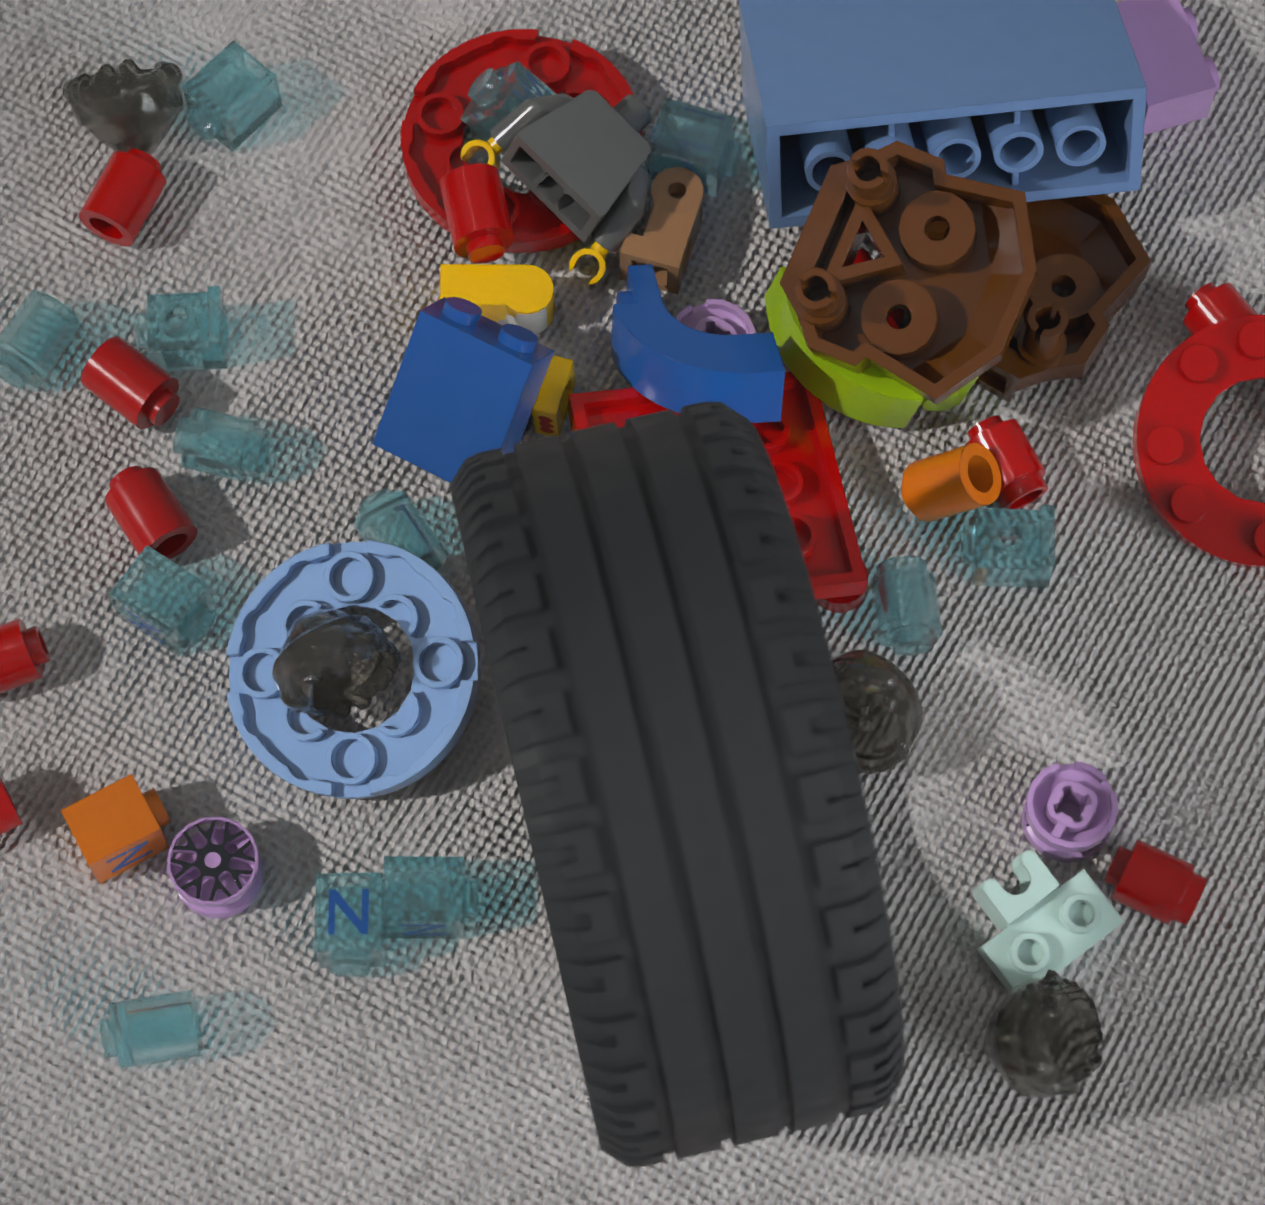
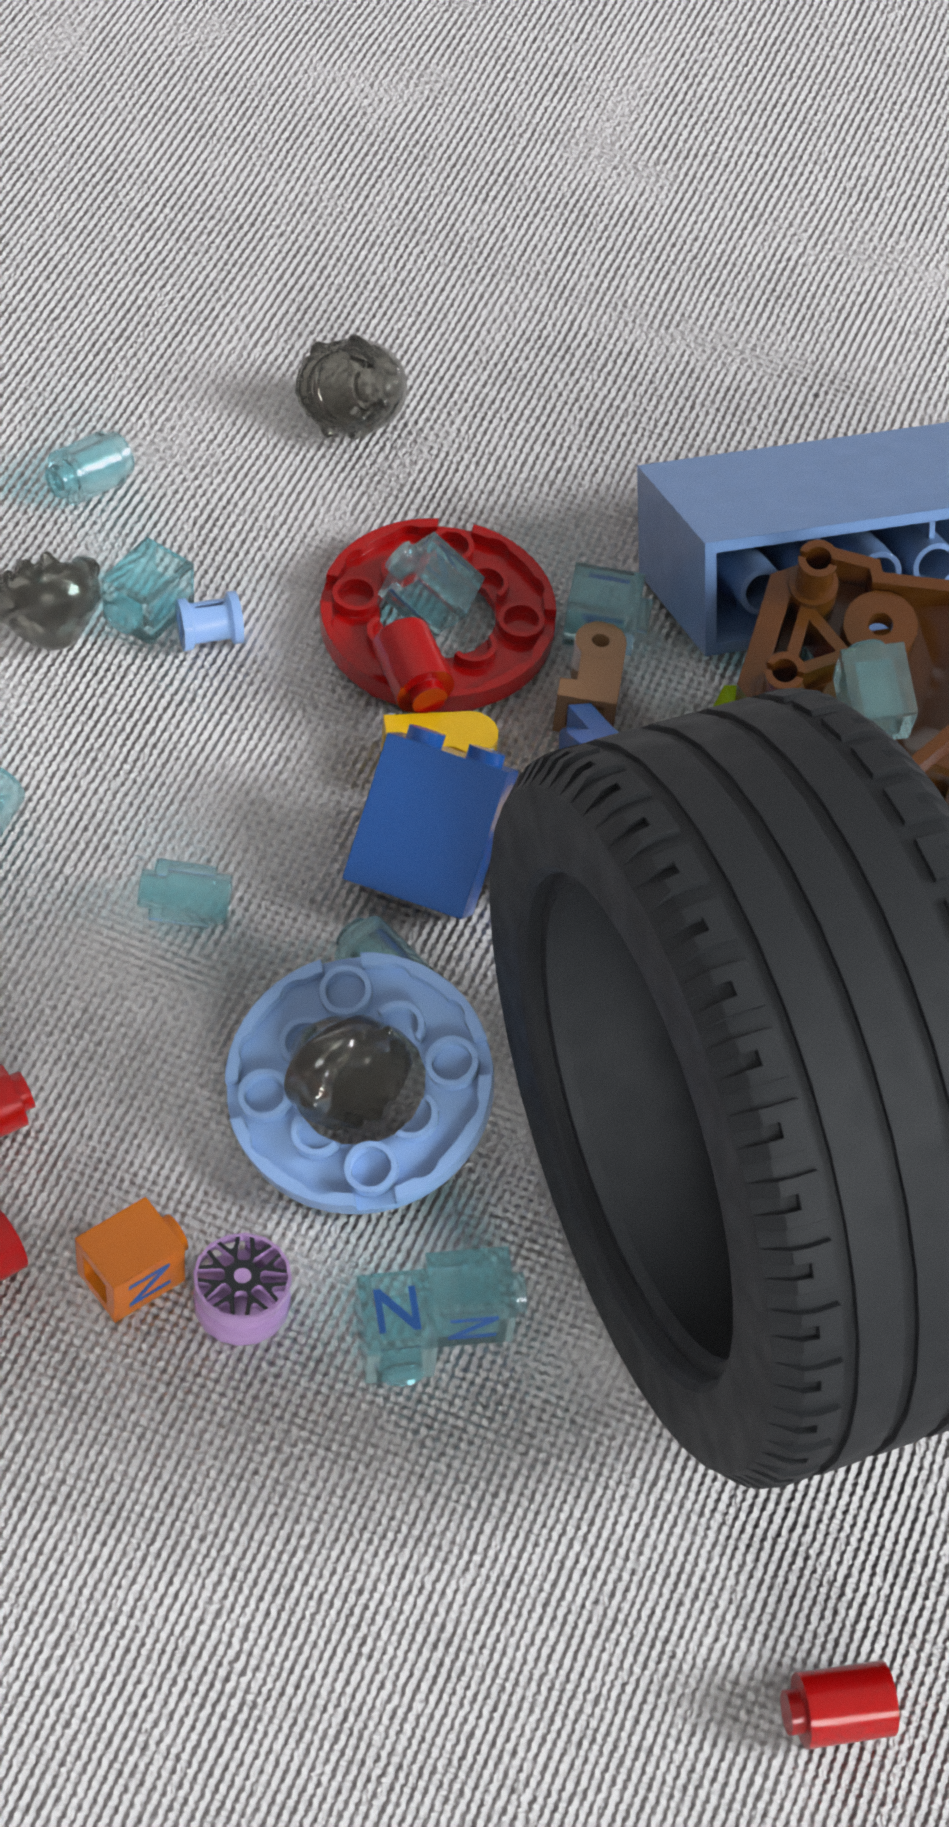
camera: 15 degrees left, 15 degrees down
(123, 197) = (51, 684): red brick -> none
(131, 383) = (84, 845): red brick -> none
(149, 512) = (122, 962): red brick -> none
(153, 1029) = (201, 1453): clear light blue brick -> none
(164, 601) = (149, 1040): clear light blue brick -> none
(199, 340) = (132, 796): clear light blue brick -> none
(289, 134) = (209, 620): none -> light blue bush
(579, 163) = (506, 615): dark grey torso -> none
(909, 310) = (878, 685): none -> clear light blue brick

